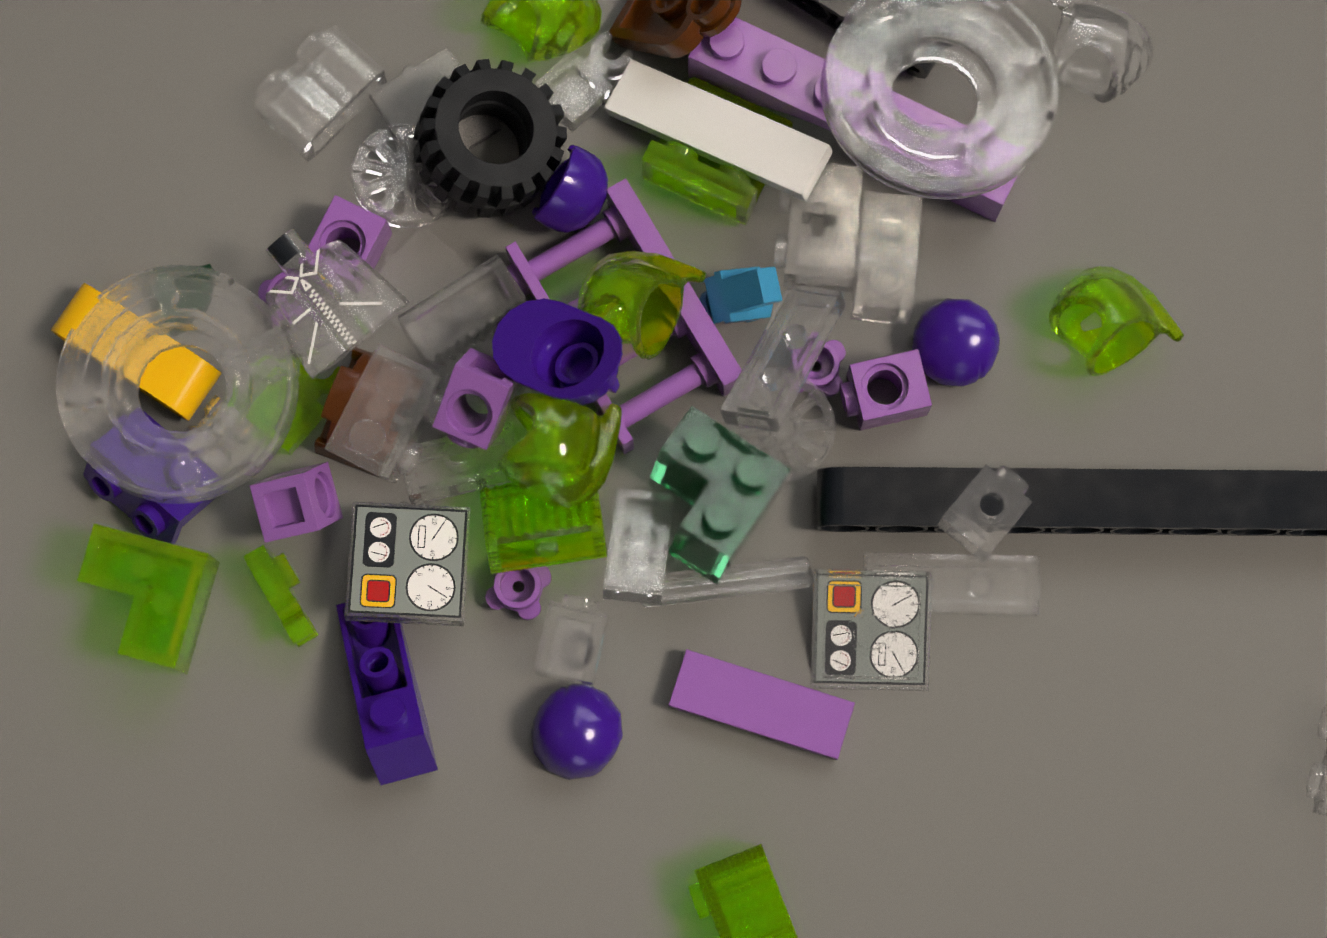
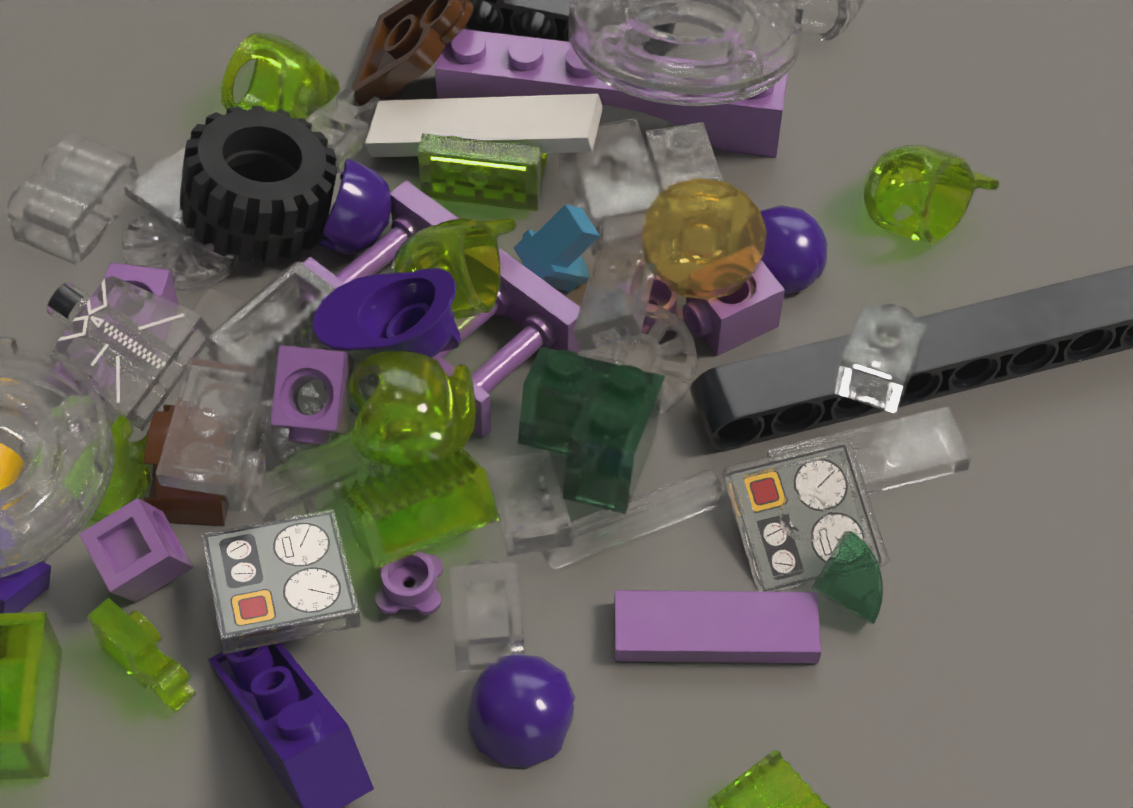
camera: 20 degrees left, 25 degrees down
(871, 340) = (703, 238): none -> clear yellow tile
(886, 702) = (852, 578): none -> clear green tile

